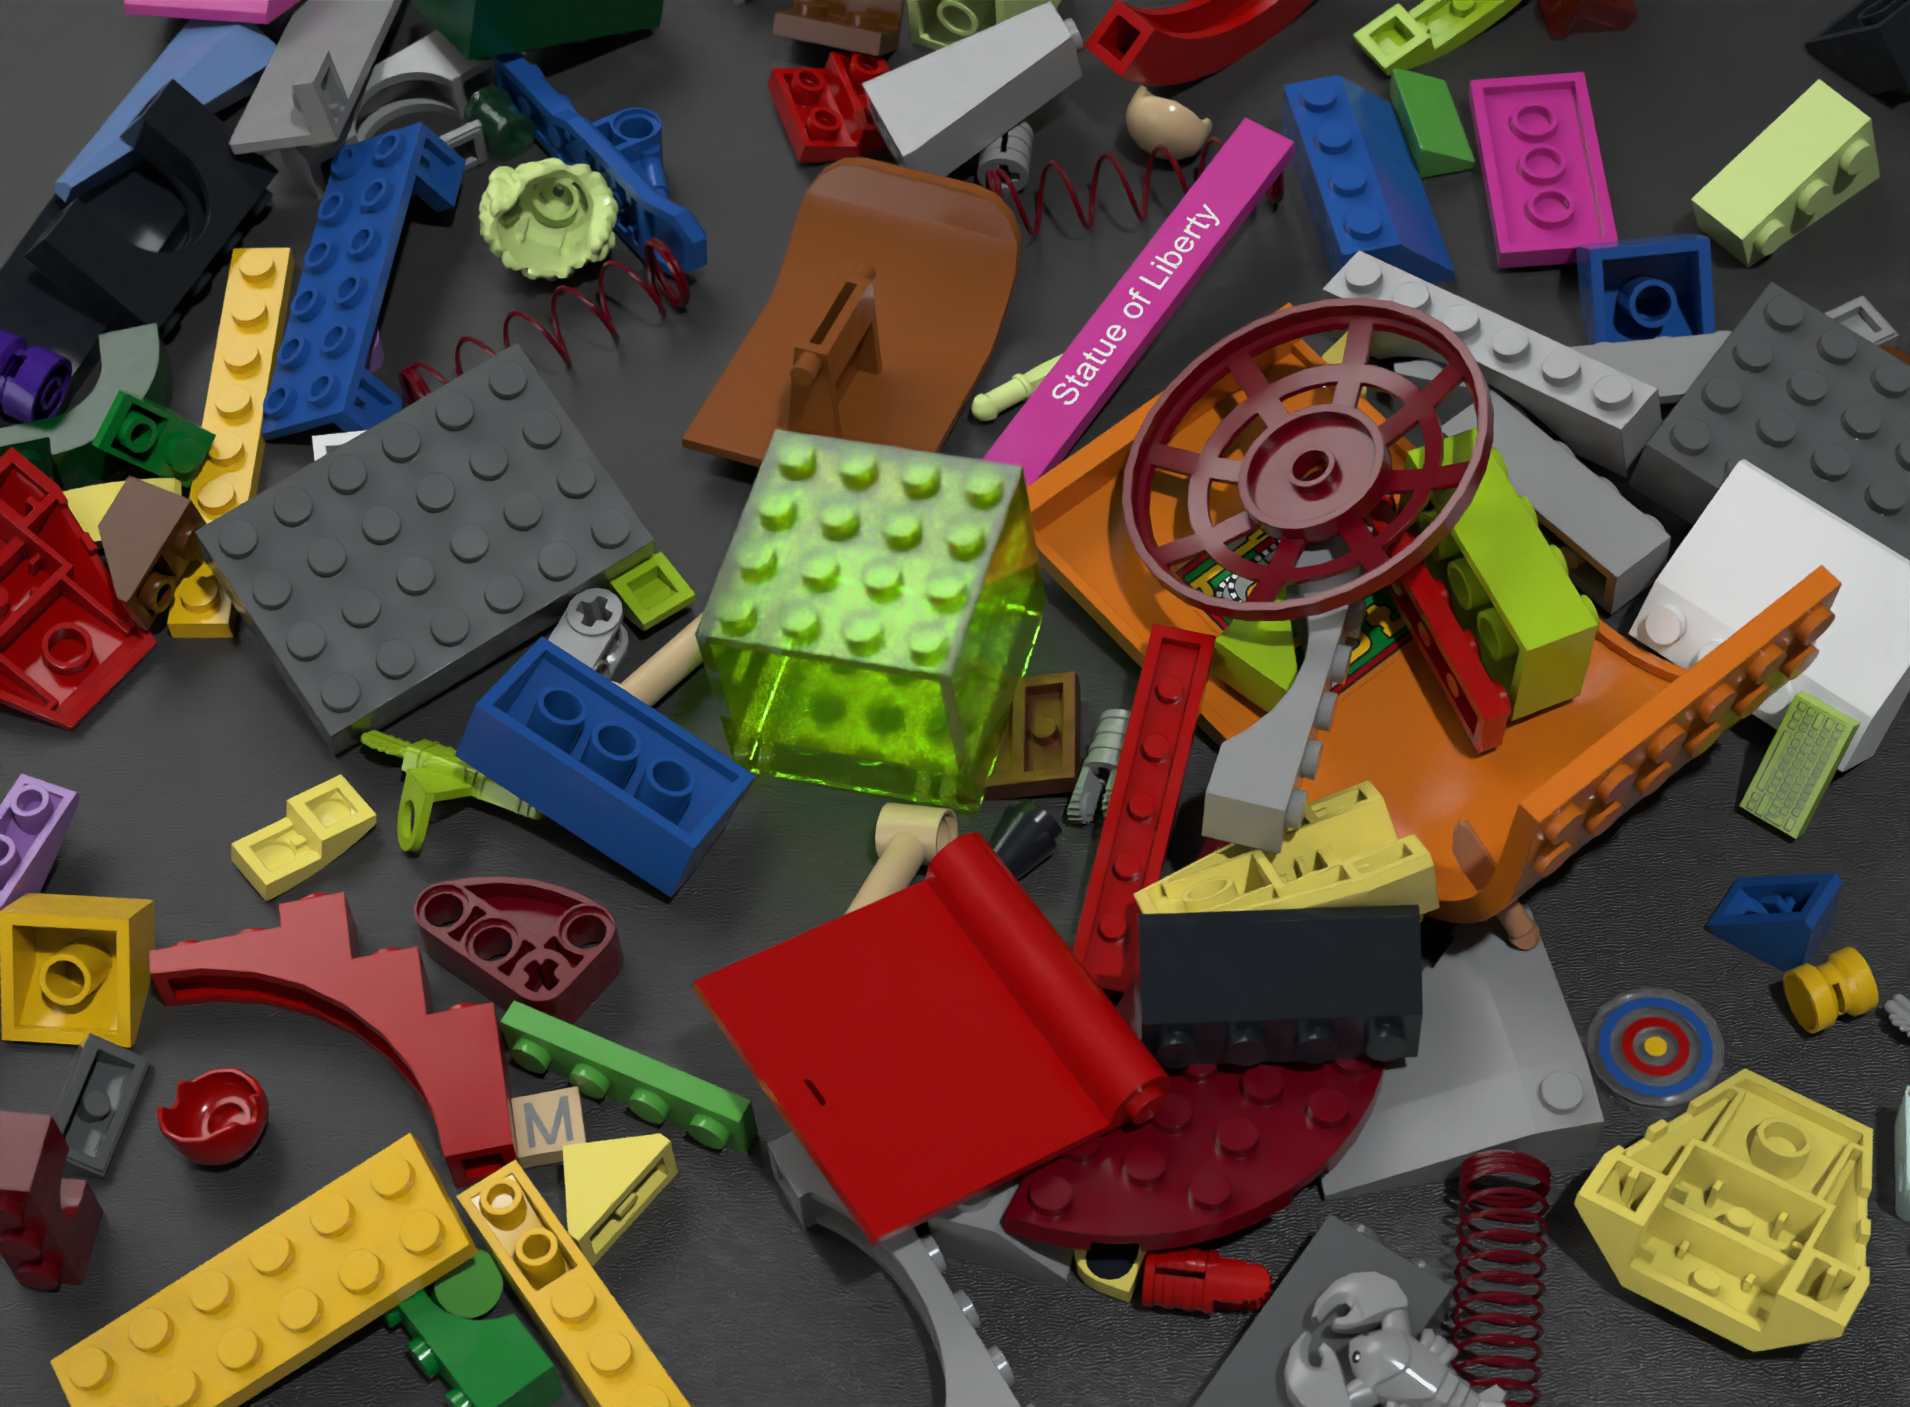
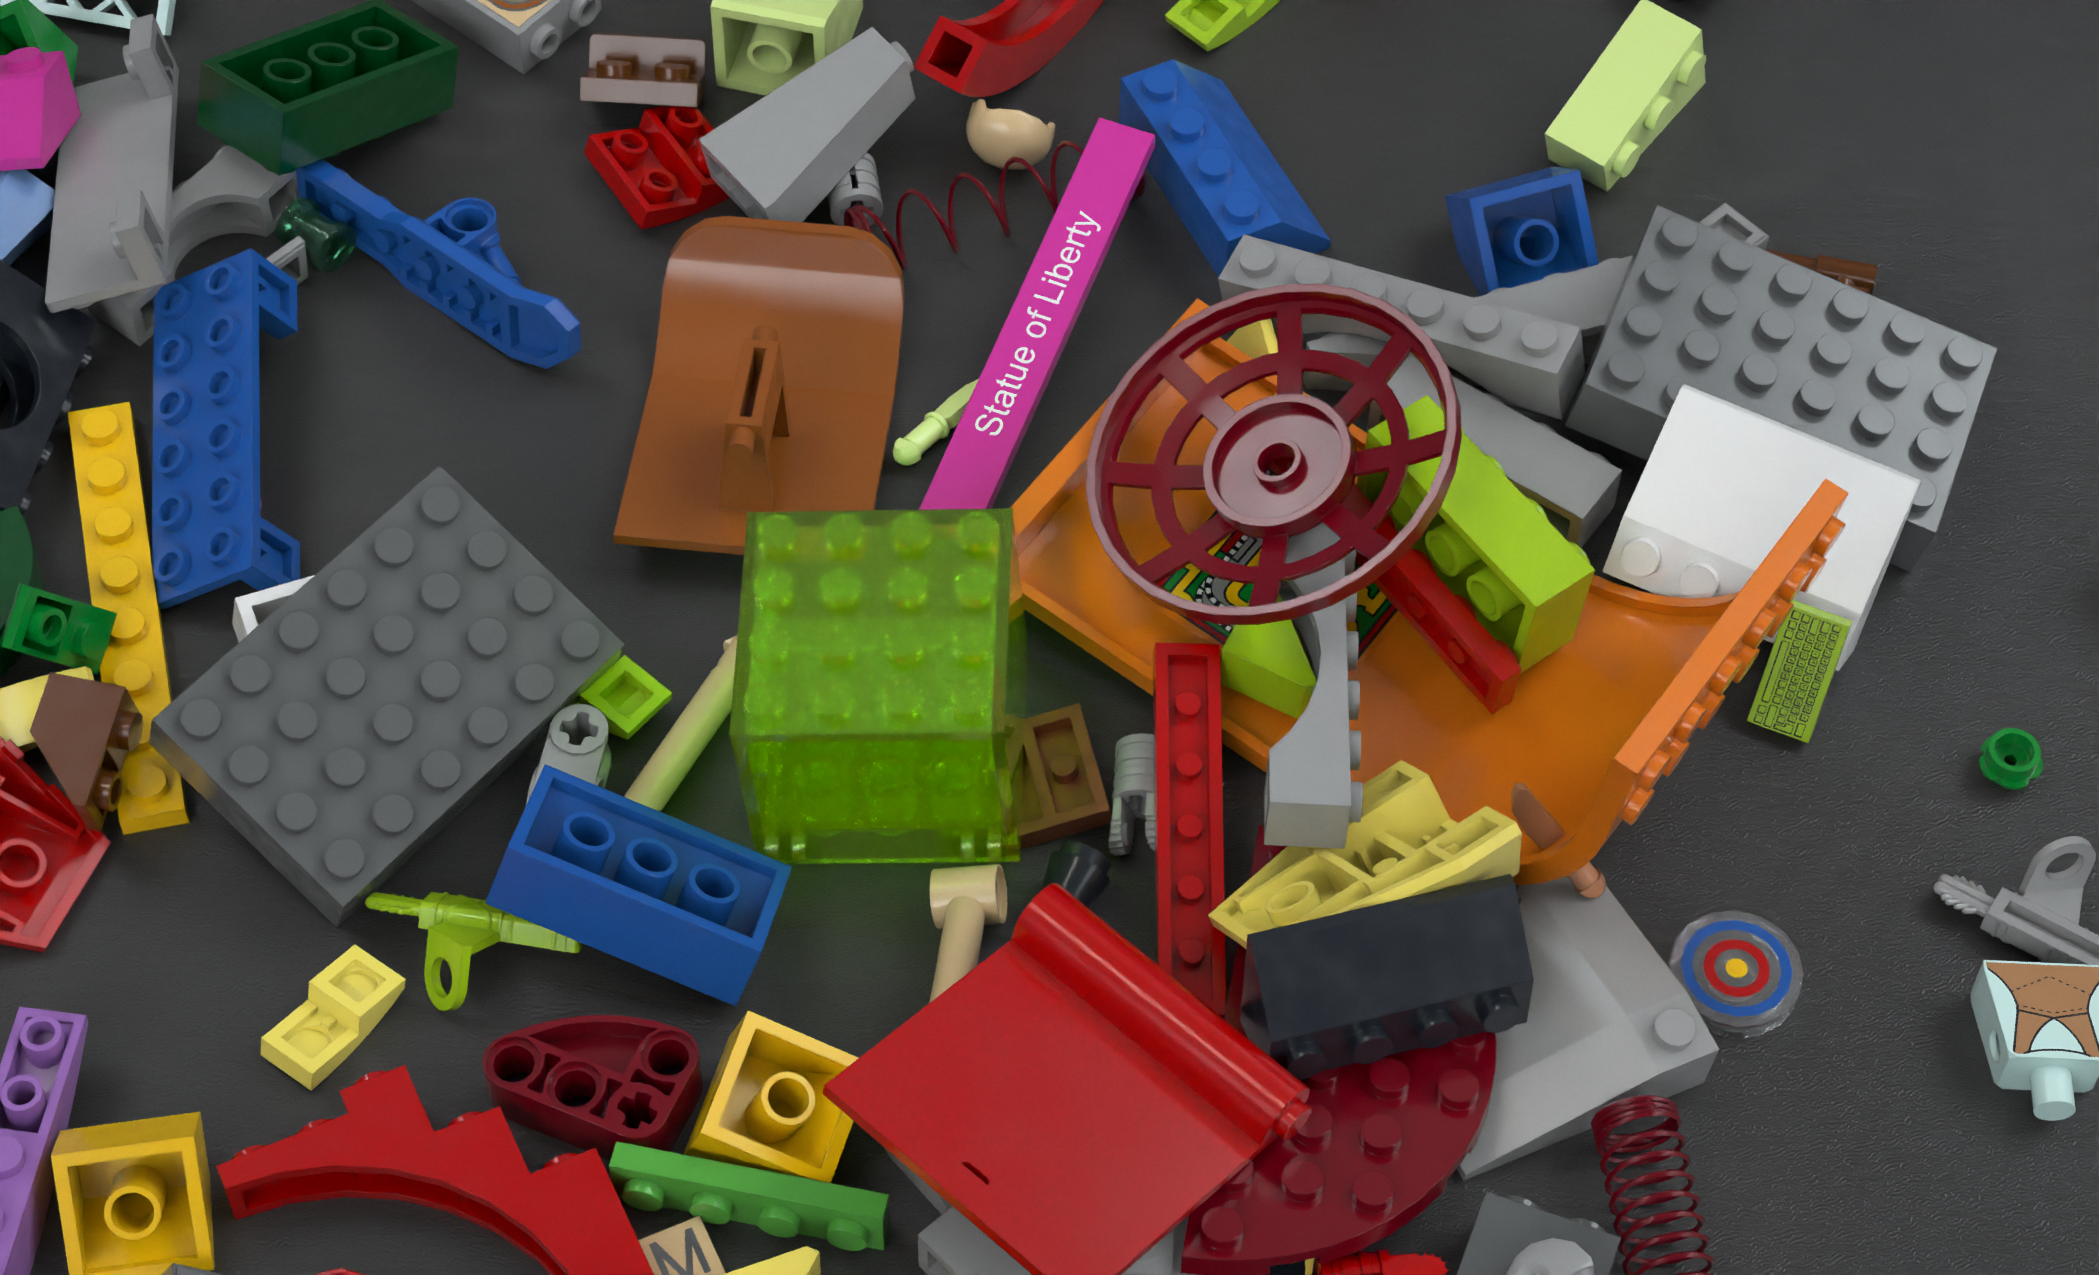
camera: 20 degrees left, 0 degrees up
(409, 377) = (533, 382): dark red piece -> none
(546, 226) = (406, 328): yellowish green hair -> none
(651, 998) = (770, 1103): none -> yellow slope
(1430, 123) = (1264, 94): bright green slope -> none
(1540, 167) = (1386, 123): dark pink plate -> none
(1741, 1214) = (1865, 1114): light yellow wedge -> none
(1778, 916) = (1814, 821): blue slope -> none
(1830, 990) = (1888, 878): yellow wheel -> none

